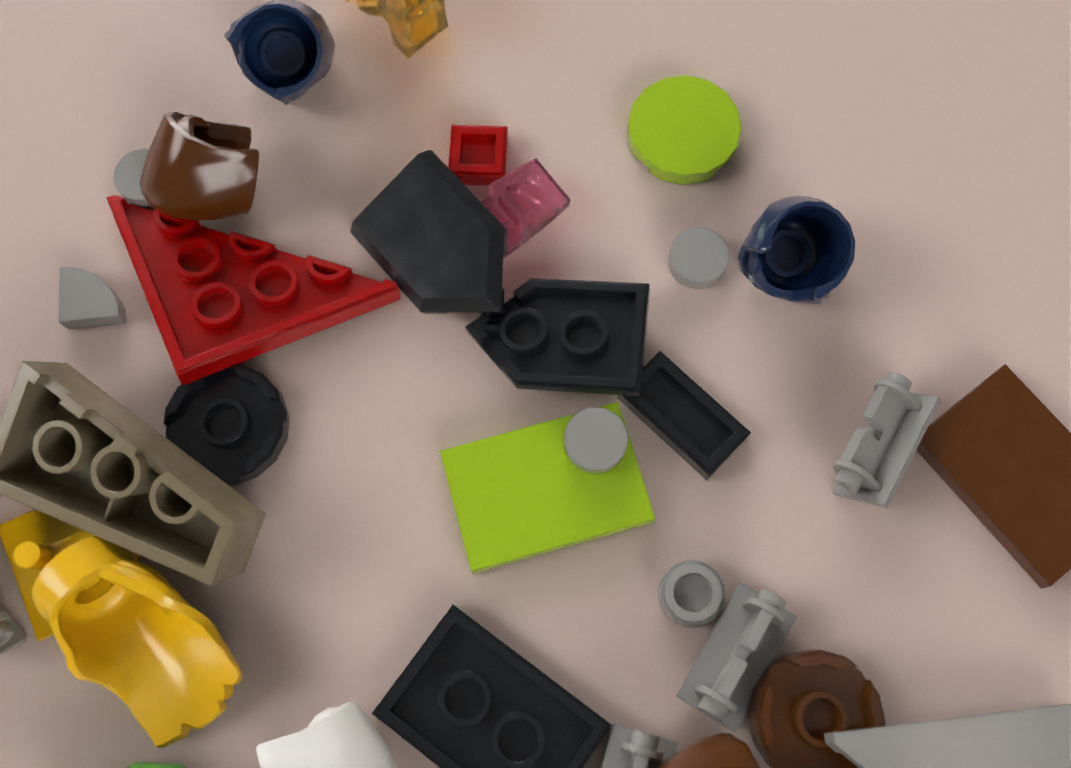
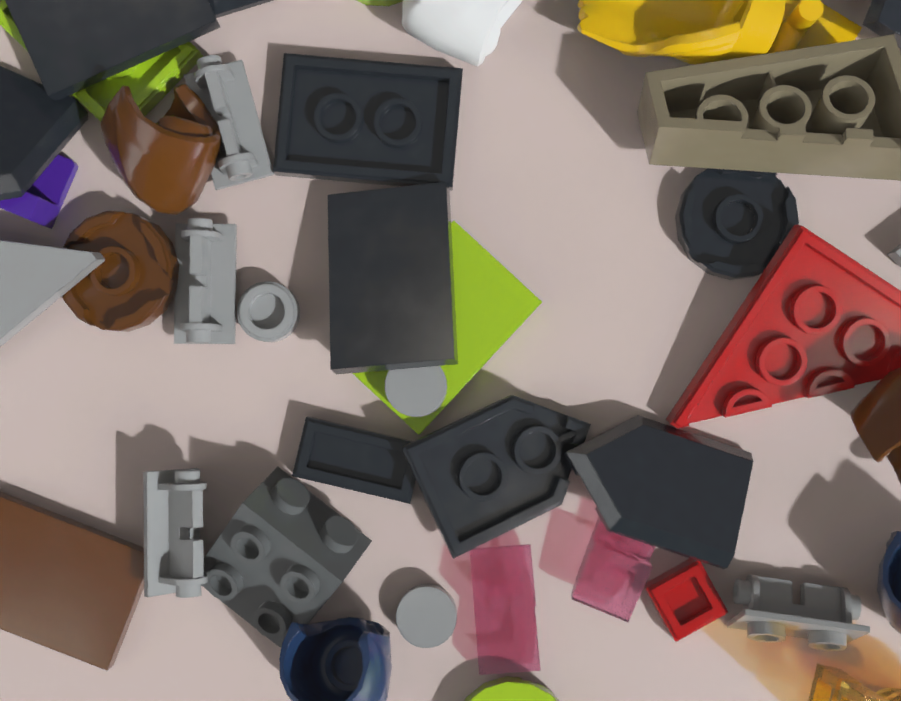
camera: 145 degrees right, 15 degrees up
(417, 108) = (821, 616): none -> light grey hinge
(560, 550) = (391, 279): none -> black tile
(630, 225) = (504, 609): none -> clear pink slope
(795, 368) = (281, 556): none -> dark grey bracket

